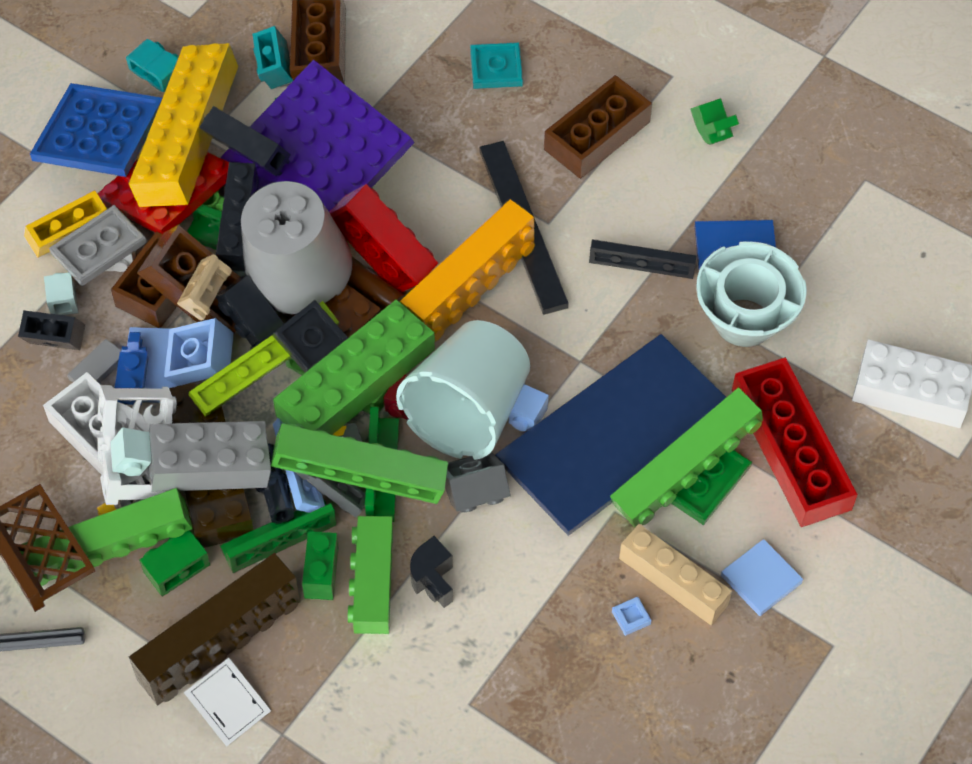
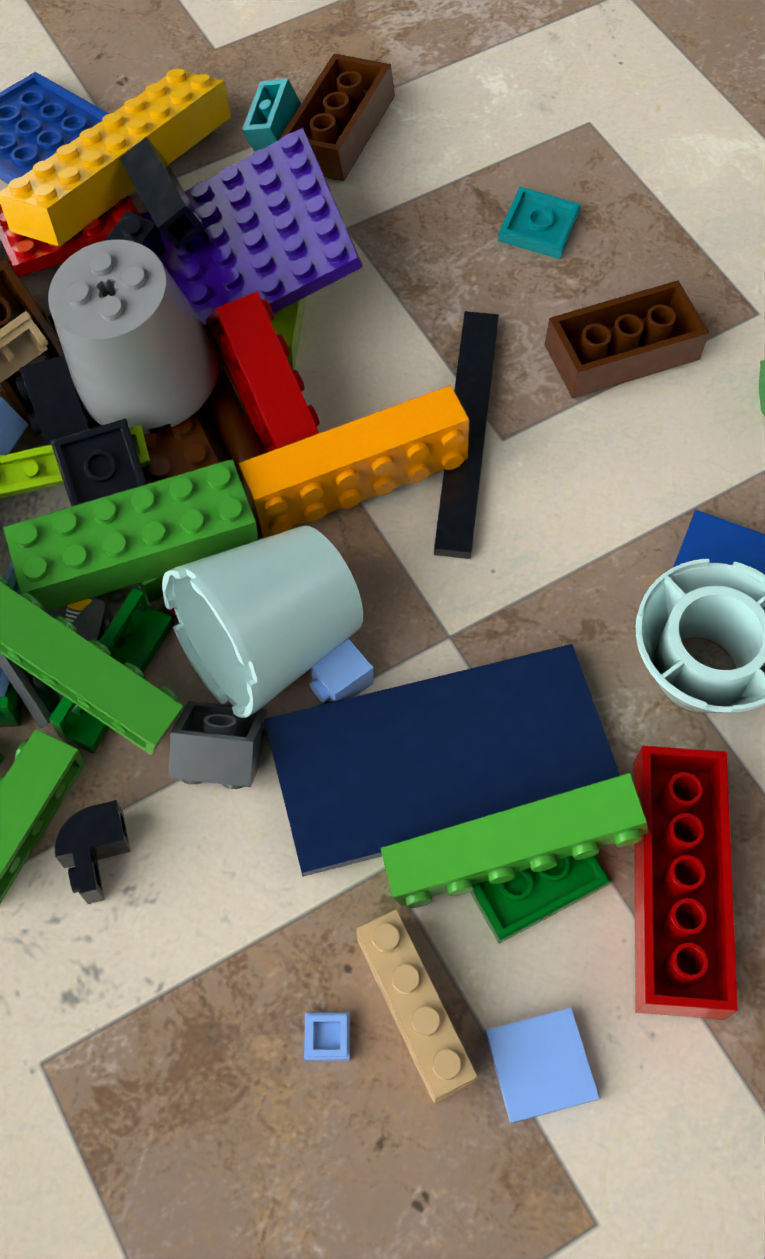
camera: 25 degrees right, 5 degrees up
(152, 63) = (134, 74): teal brick -> none
(642, 259) = (599, 532): black hinge -> none

